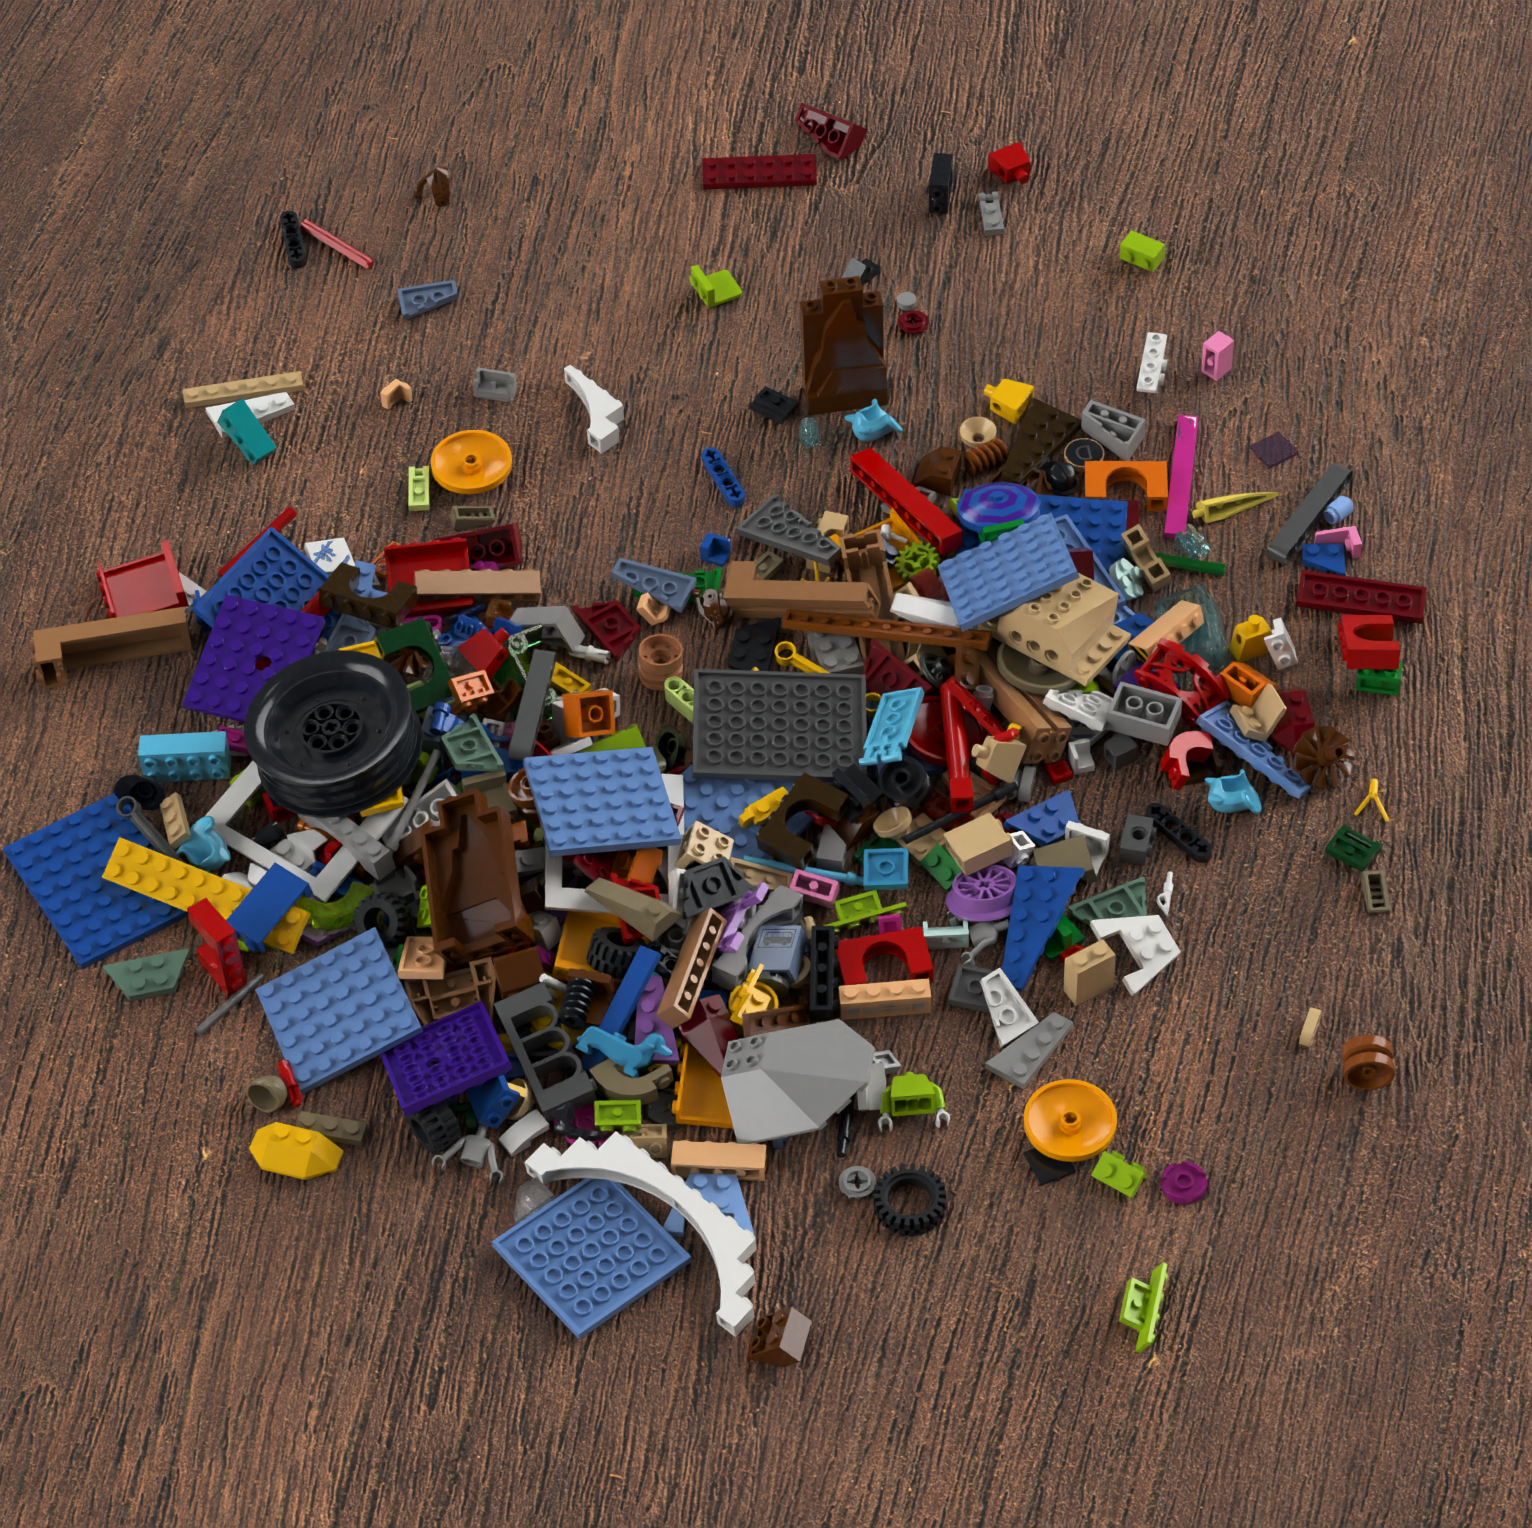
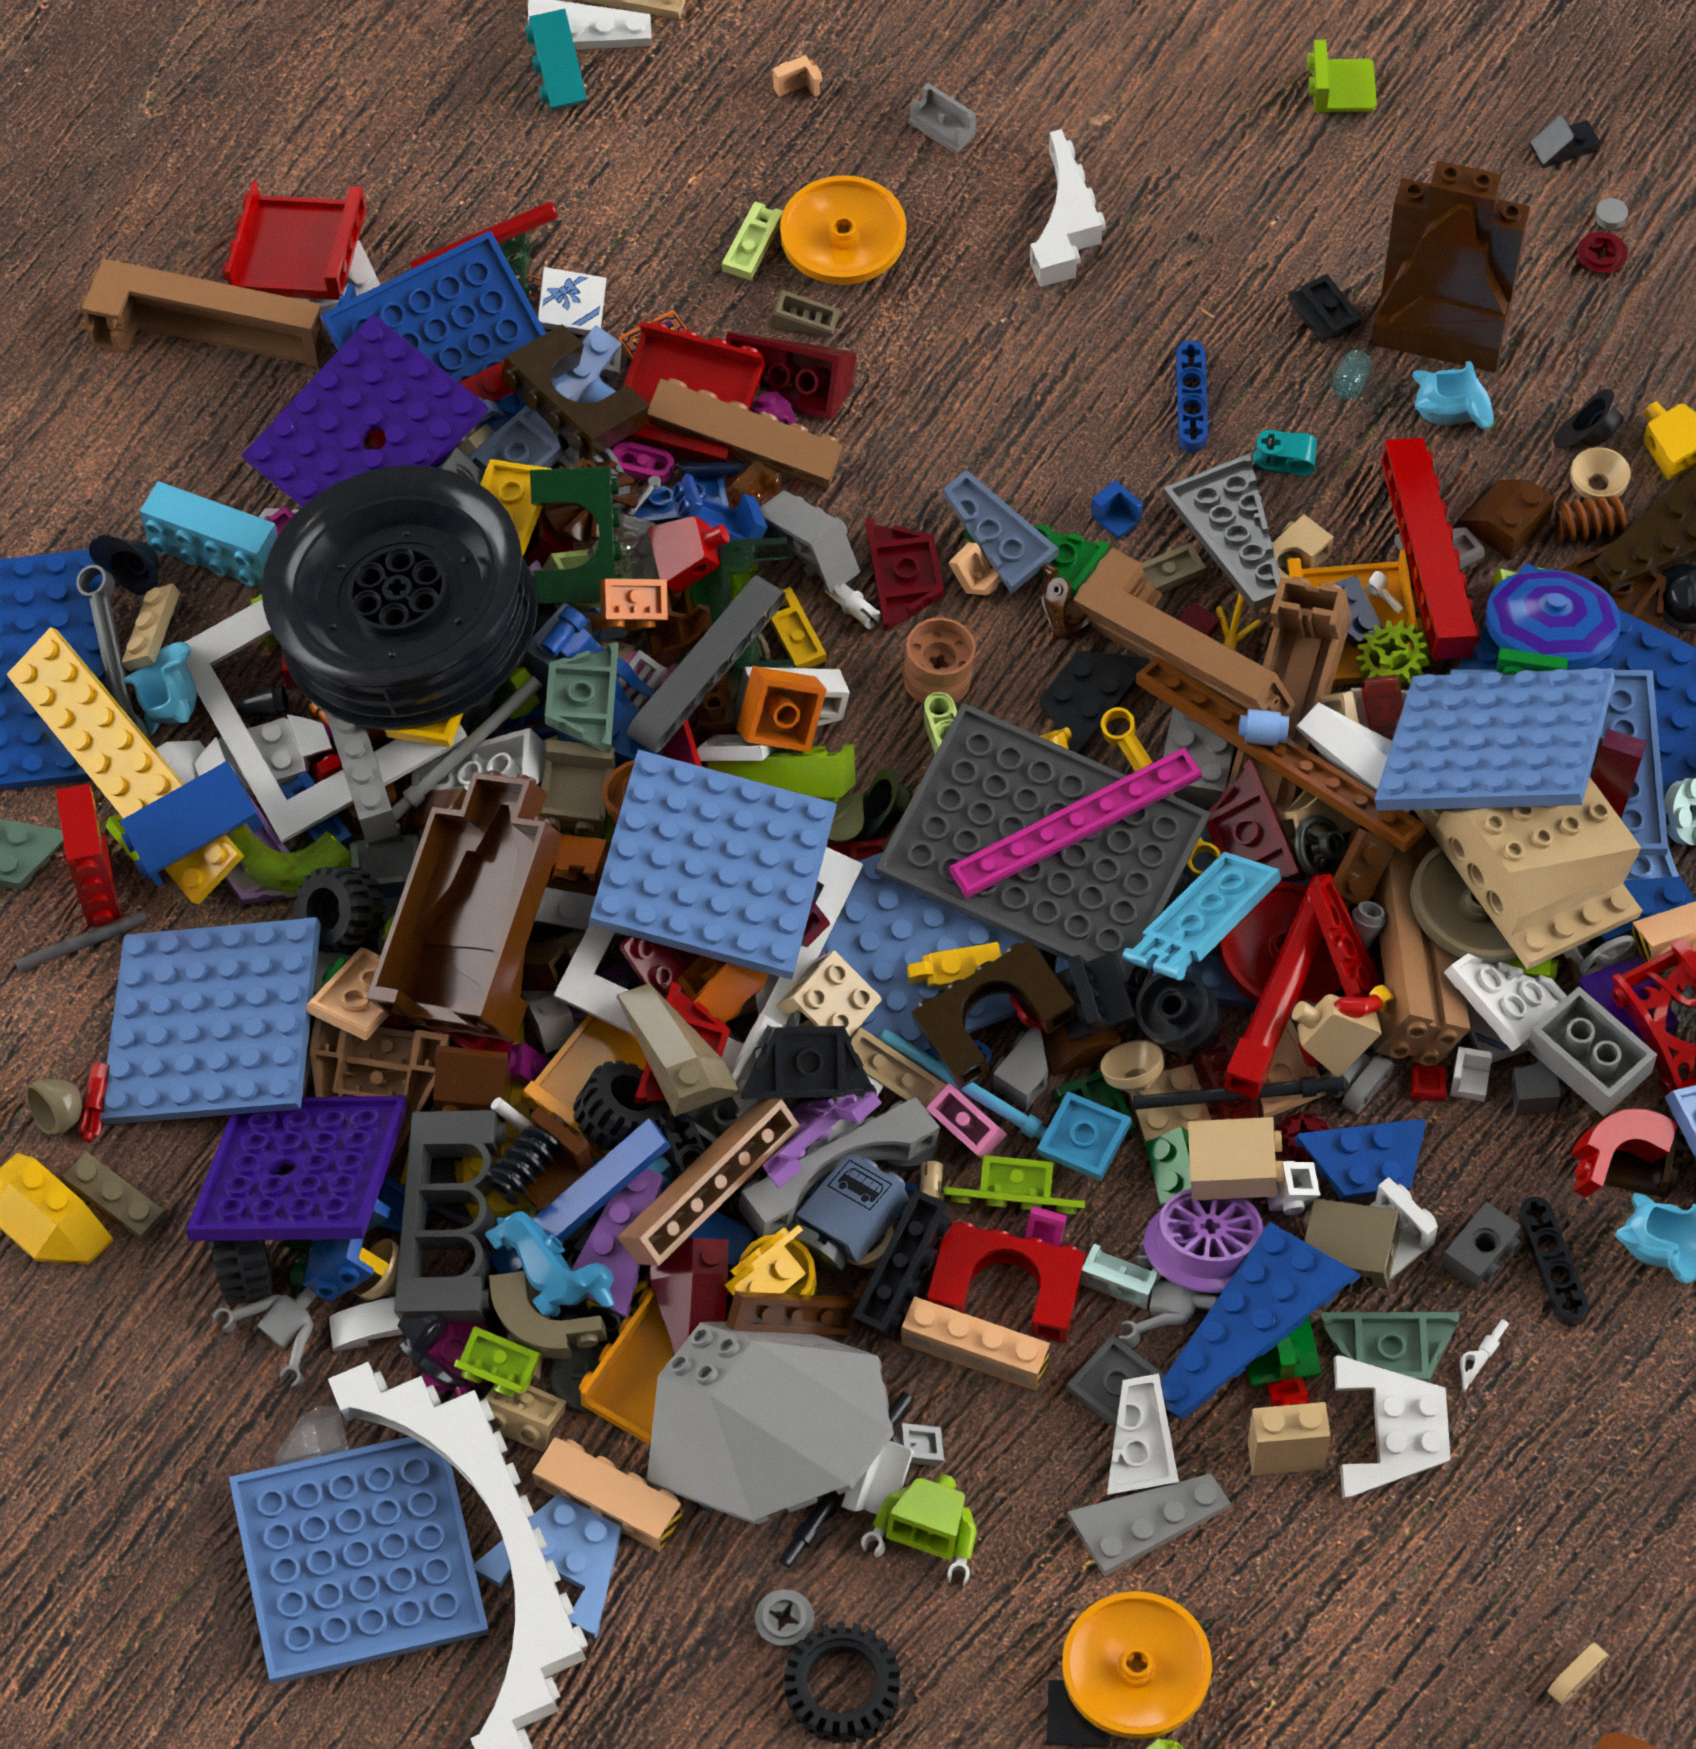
camera: 25 degrees right, 10 degrees up
(793, 706) = (1075, 822): none -> dark pink tile
(795, 484) = (1288, 452): none -> teal piece
(873, 617) = (1264, 727): none -> light blue brick
(958, 407) = (1592, 423): none -> black piece

